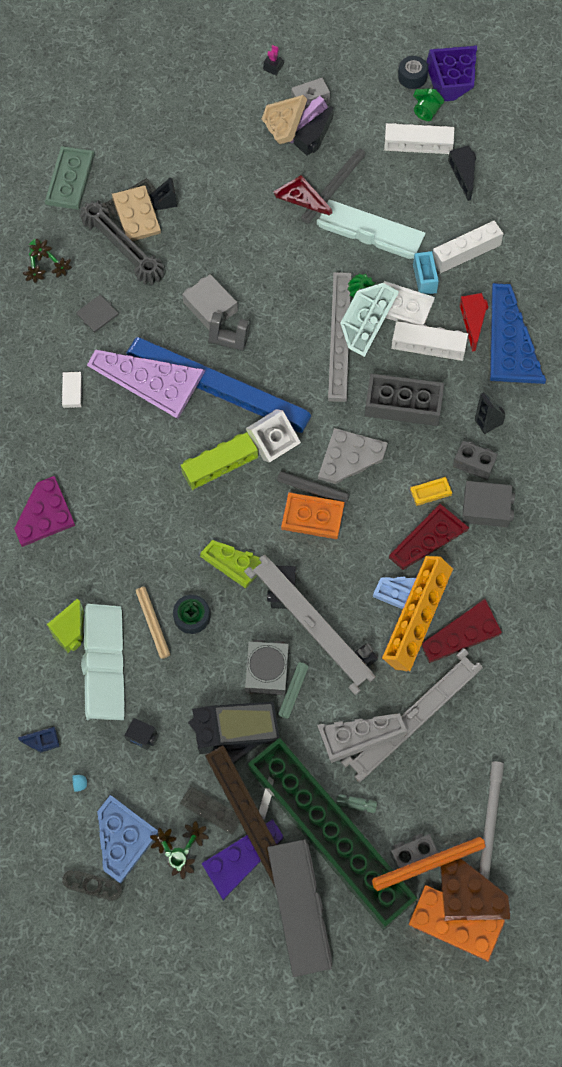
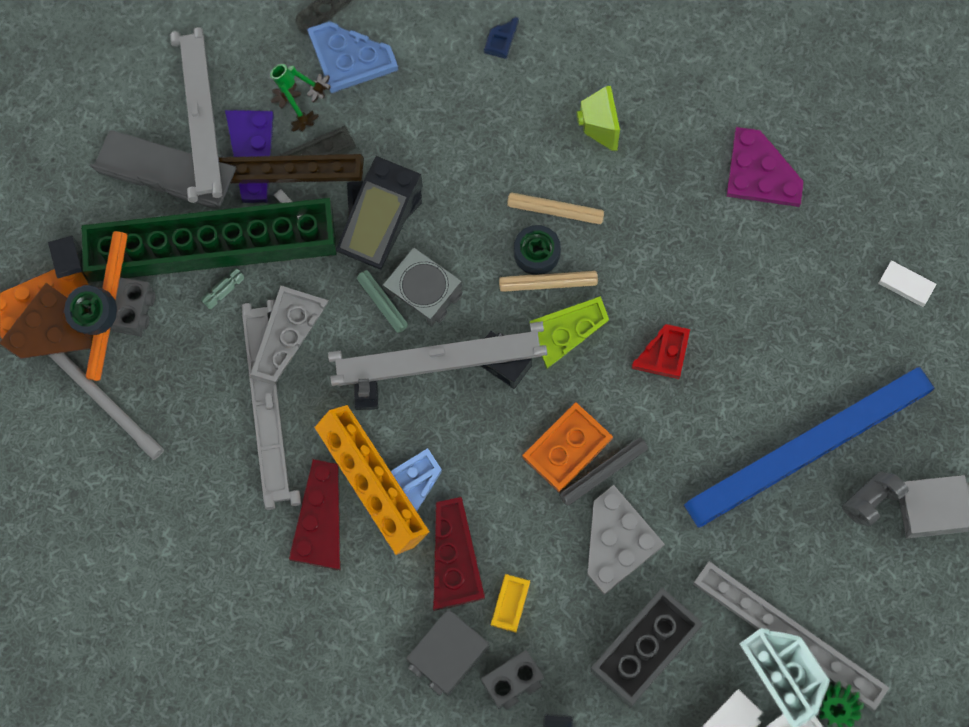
camera: 125 degrees right, 5 degrees up
(79, 782) = (432, 47): medium azure hinge -> none
(103, 662) = (543, 136): light aqua piece -> none
(141, 734) = (439, 127): black brick -> none
(155, 381) = (852, 378): lavender wing -> none
(208, 595) = (548, 281): none -> tan axle
(211, 496) = (664, 353): none -> red wing
(219, 460) = (704, 386): lime brick -> none
(238, 911) = (199, 114): none -> light grey piece
(273, 435) = (694, 458): white brick -> none
(414, 922) = (66, 256): none -> black slope
(435, 873) = (102, 307): none -> wheel

